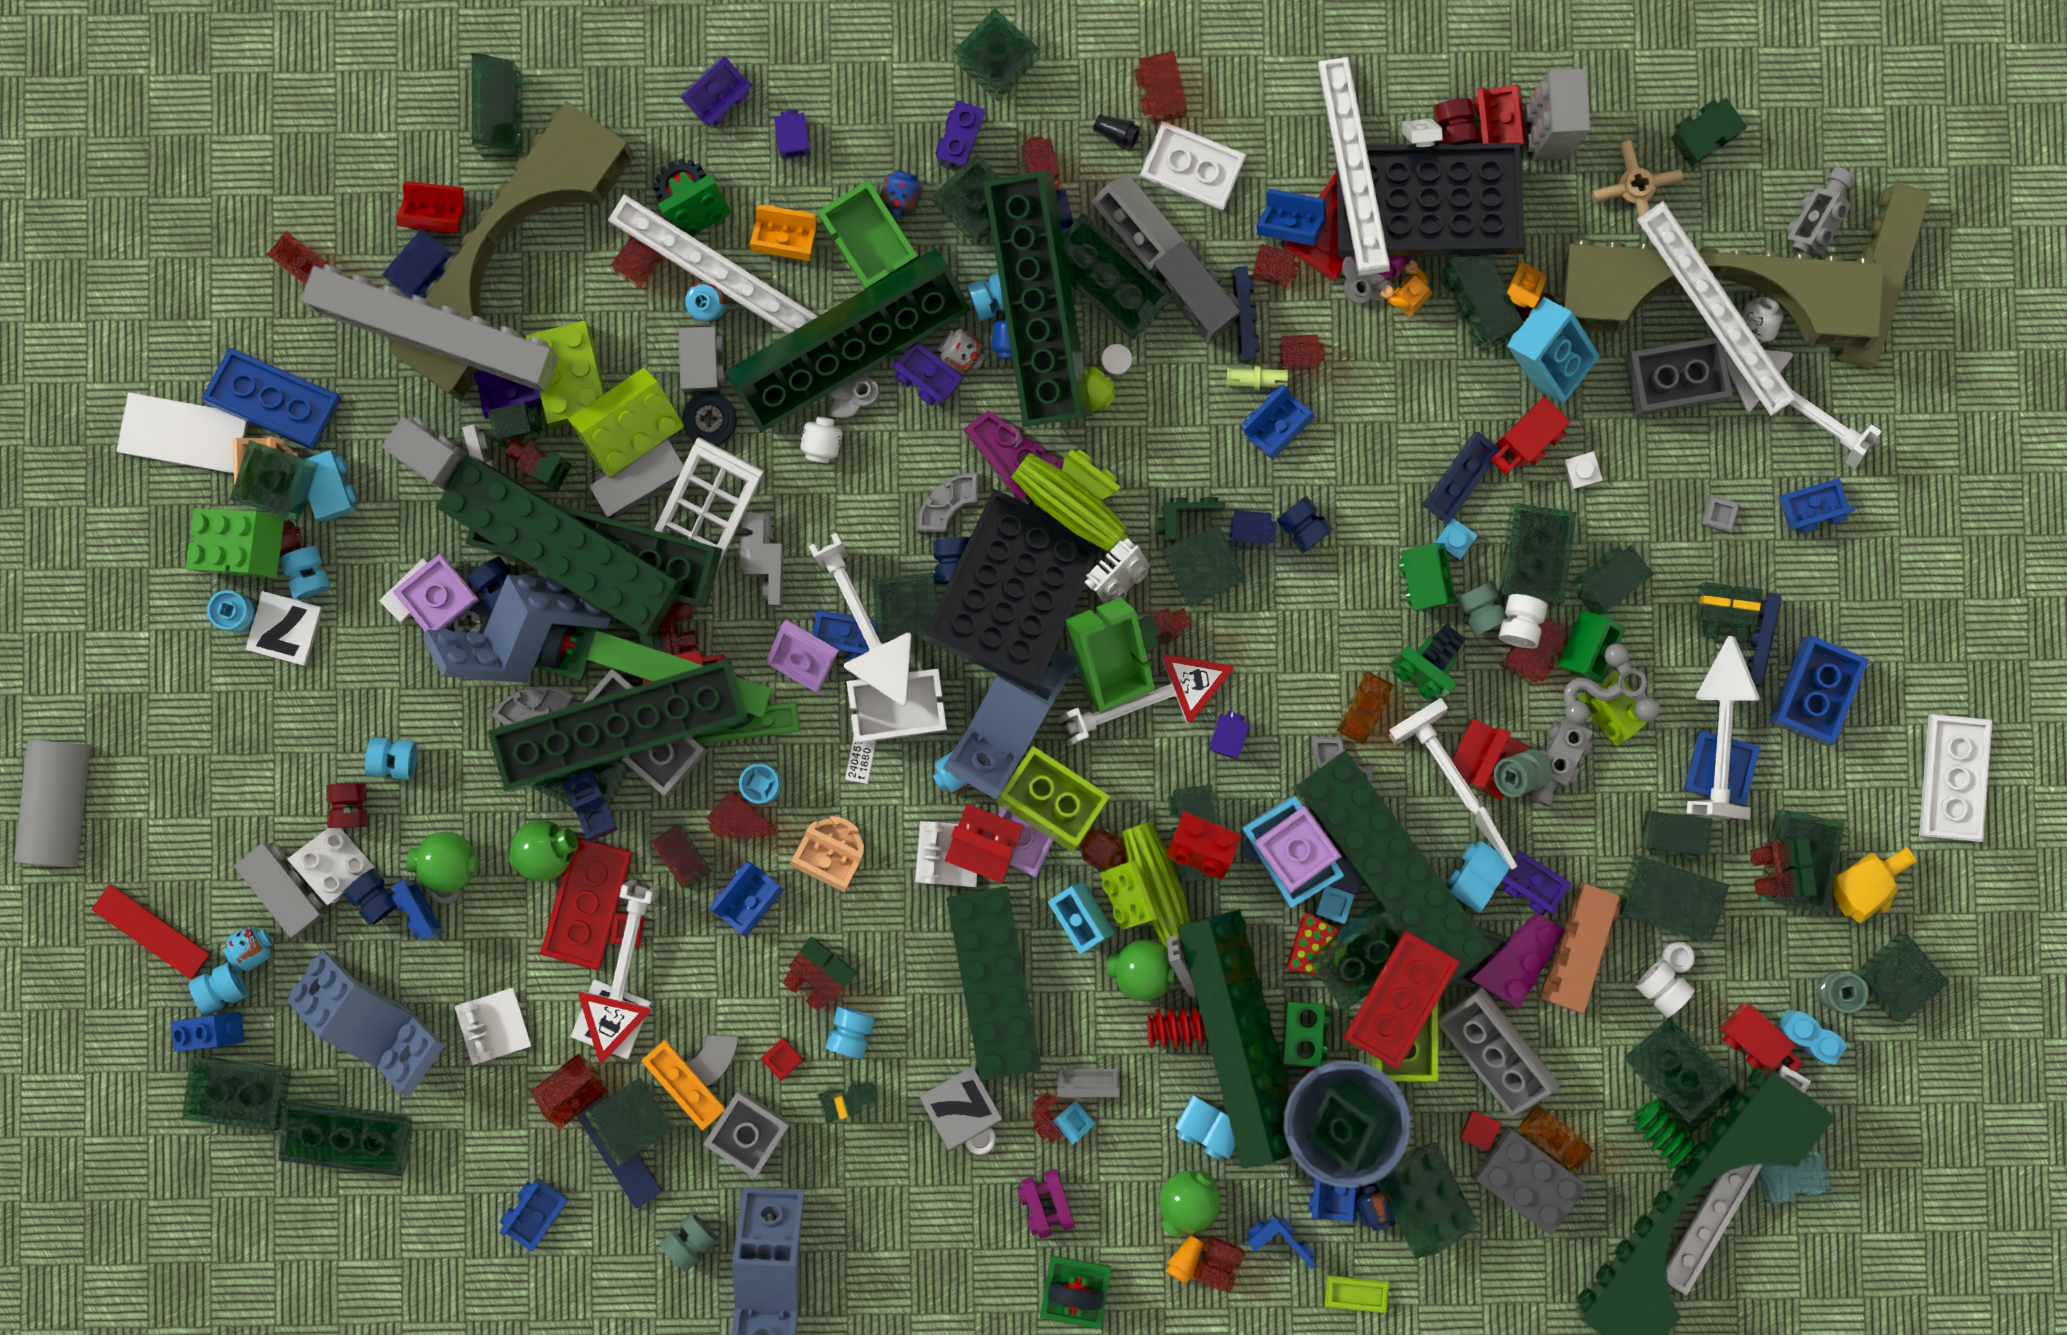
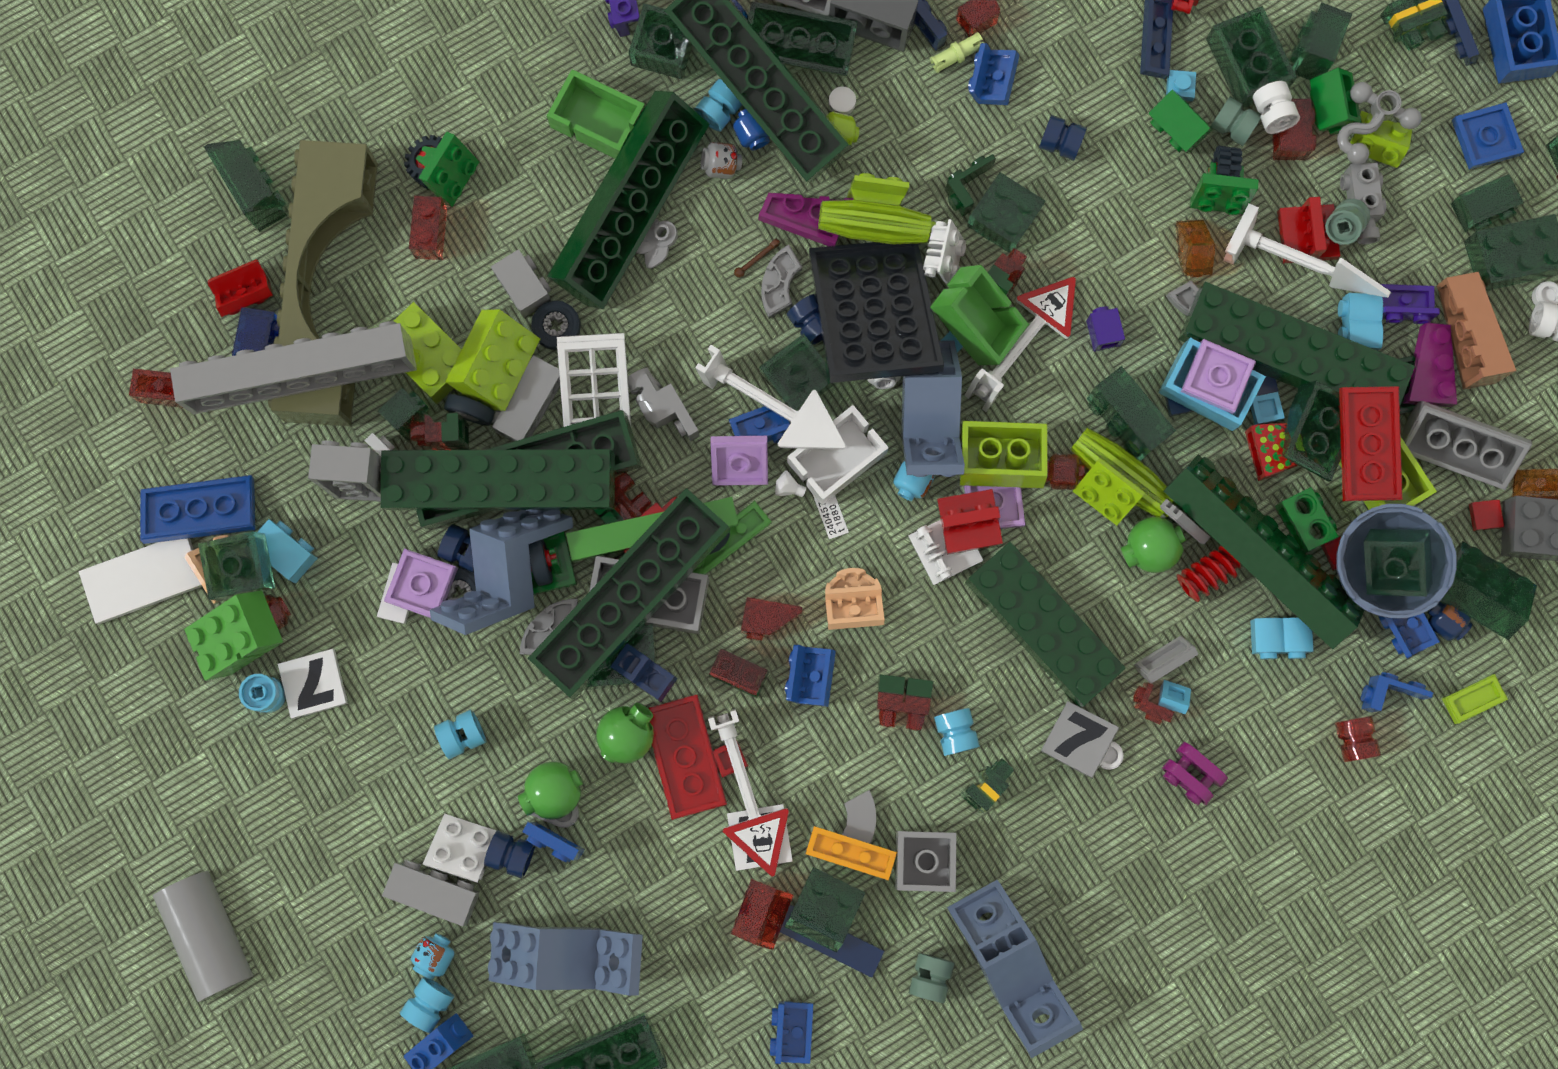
camera: 30 degrees left, 5 degrees down
(151, 931) = (344, 992): red tile -> none
(302, 562) = (304, 628): medium azure wheel -> none
(346, 795) = (439, 785): dark red wheel -> none
(492, 1026) = (668, 900): white hinge -> none
(501, 392) = (376, 392): dark purple bracket -> none
(577, 456) = (469, 409): none -> black bush
(709, 266) = (485, 205): white tile -> none
(716, 92) = (413, 77): dark purple bracket -> none
(716, 302) = (491, 236): medium azure head -> none
(760, 784) = (767, 579): medium azure wheel -> none
(782, 1059) = (914, 786): red tile -> none
(784, 232) = (529, 150): light orange bracket -> none
(792, 134) = (491, 75): dark purple brick -> none
(821, 440) = (653, 289): white head -> none
(835, 705) = (788, 486): none -> white rock
(901, 192) = (602, 67): blue head -> none
(916, 470) = (740, 271): none -> reddish brown hinge
(927, 374) = (704, 193): dark purple bracket -> none
(1075, 1292) = (1259, 830): green plate -> none
(1081, 917) = (1081, 533): medium azure brick -> none
(1185, 1260) = (1328, 754): light orange cone -> none
(1189, 1203) = (1304, 705): bright green brick -> none
(1203, 845) = (1147, 414): red bracket -> none
(1251, 530) = (1026, 161): clear blue brick -> none
(1725, 682) = (1451, 67): white piece -> none

